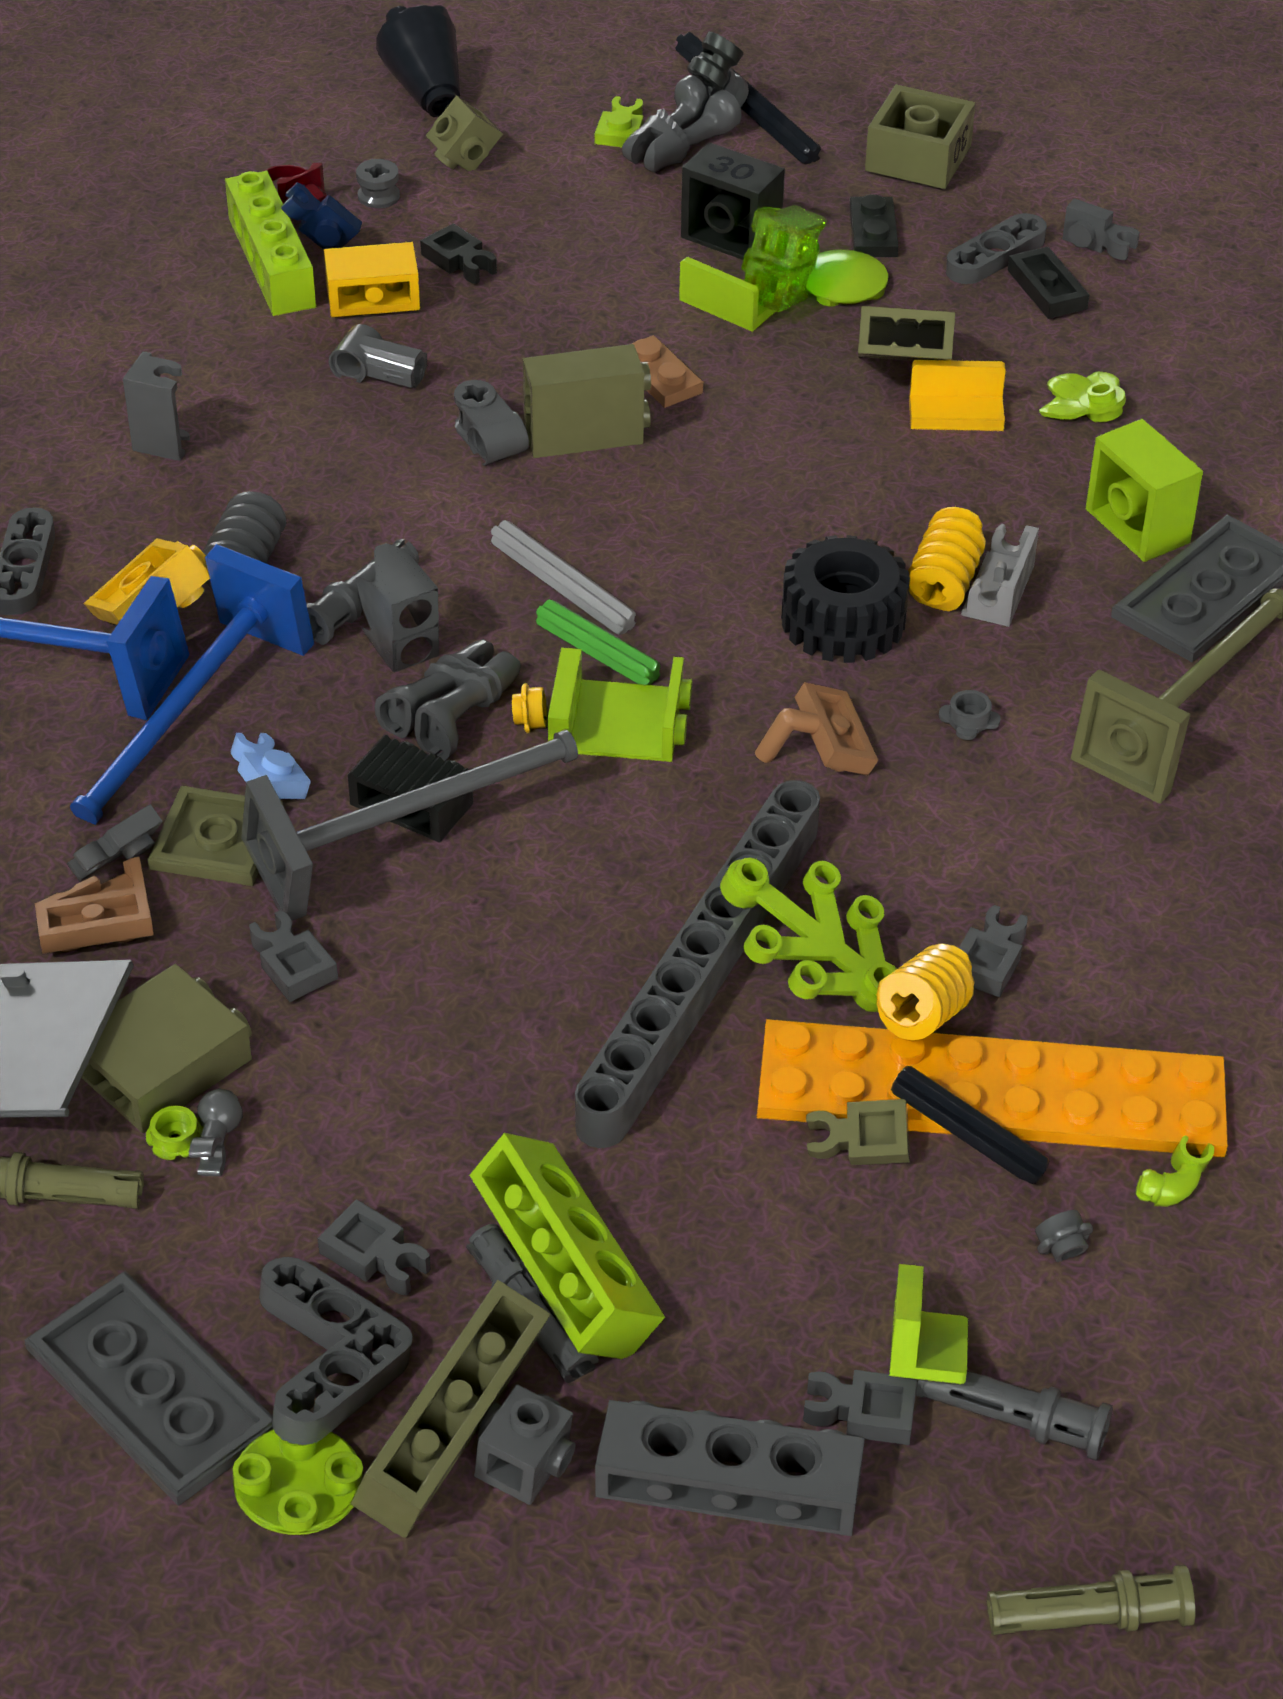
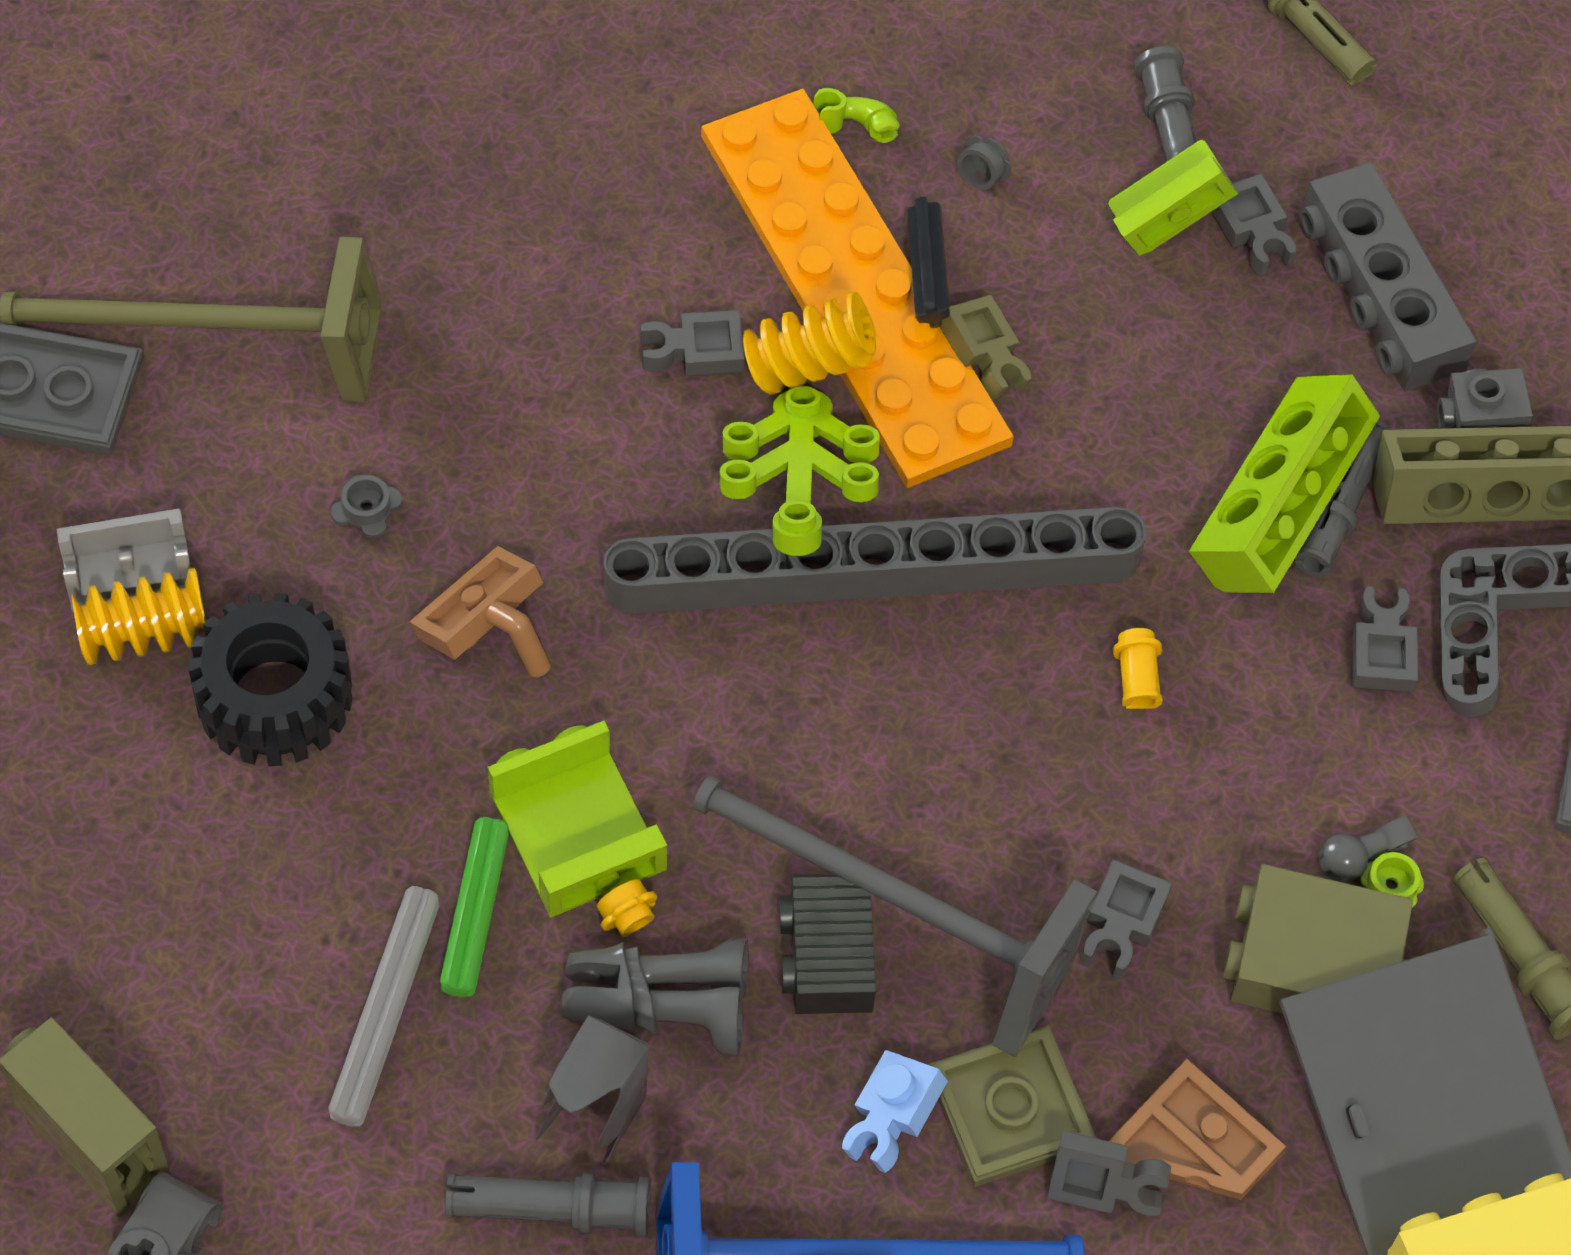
camera: 125 degrees left, 15 degrees up
(483, 1076) = (1139, 668): none -> yellow pin

